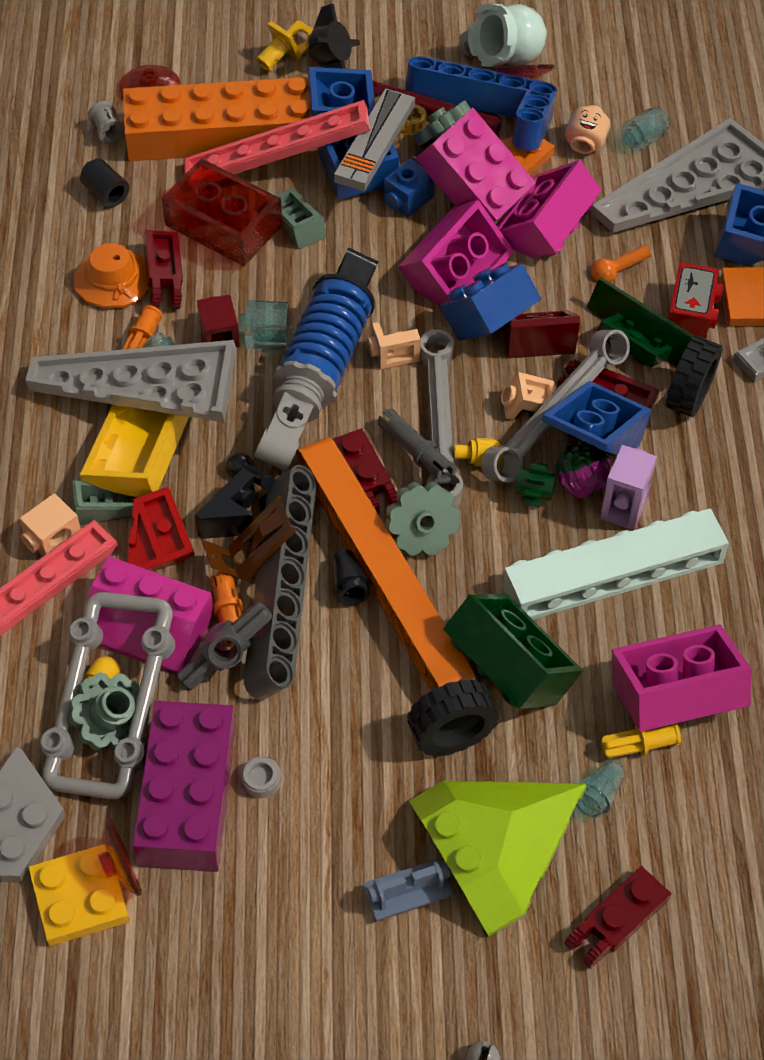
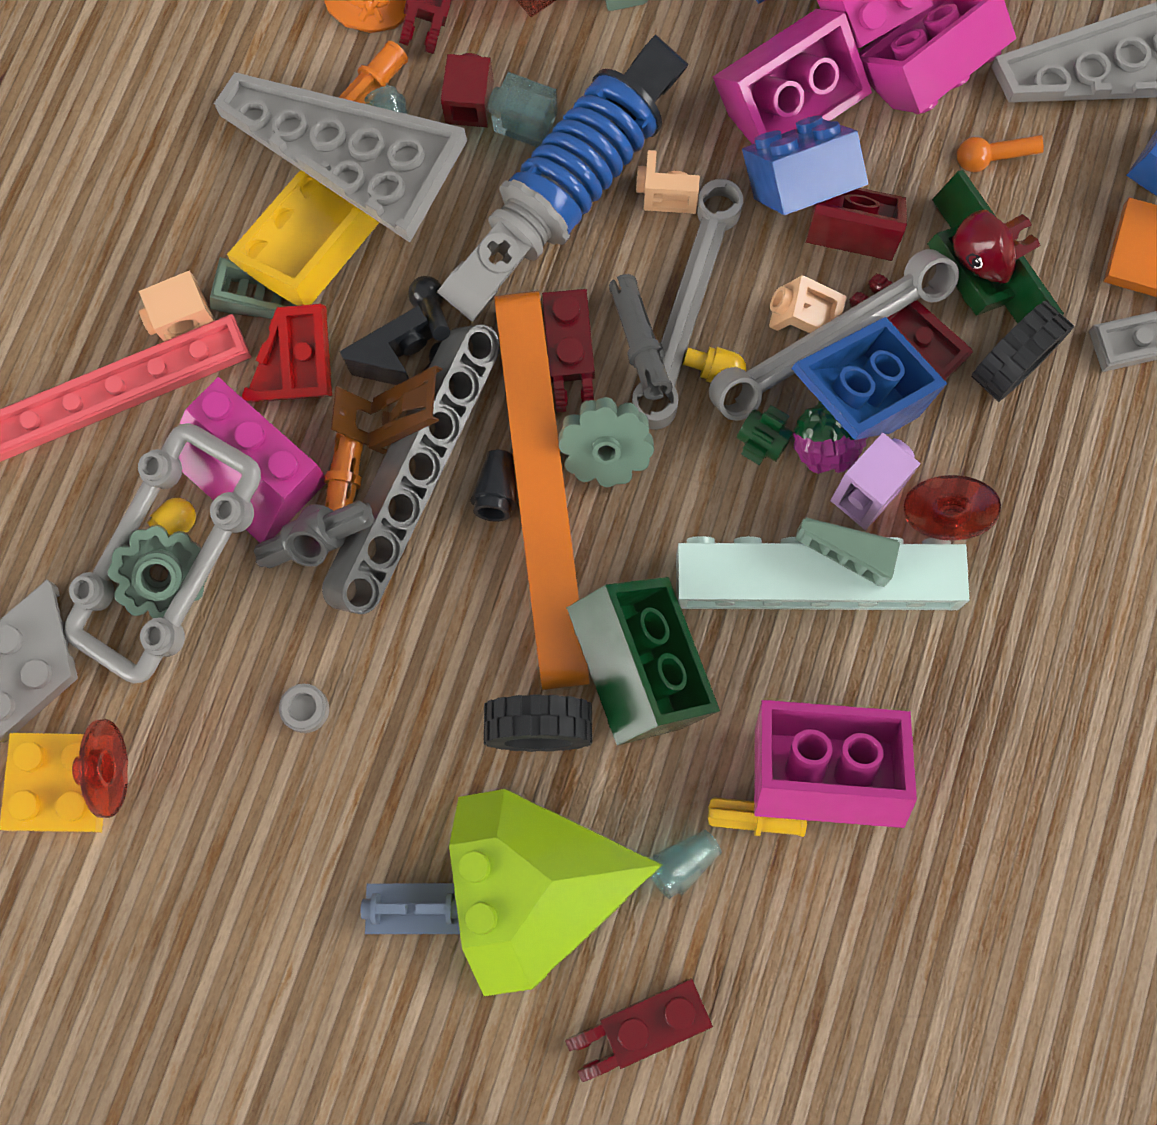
camera: 25 degrees right, 20 degrees up
(185, 786) = (209, 696): magenta brick -> none
(631, 529) = (858, 551): none -> sand green slope
(641, 315) = (990, 246): none -> dark red piece
(689, 492) = (952, 507): none -> clear red dish
(694, 298) = (1071, 233): brick -> none

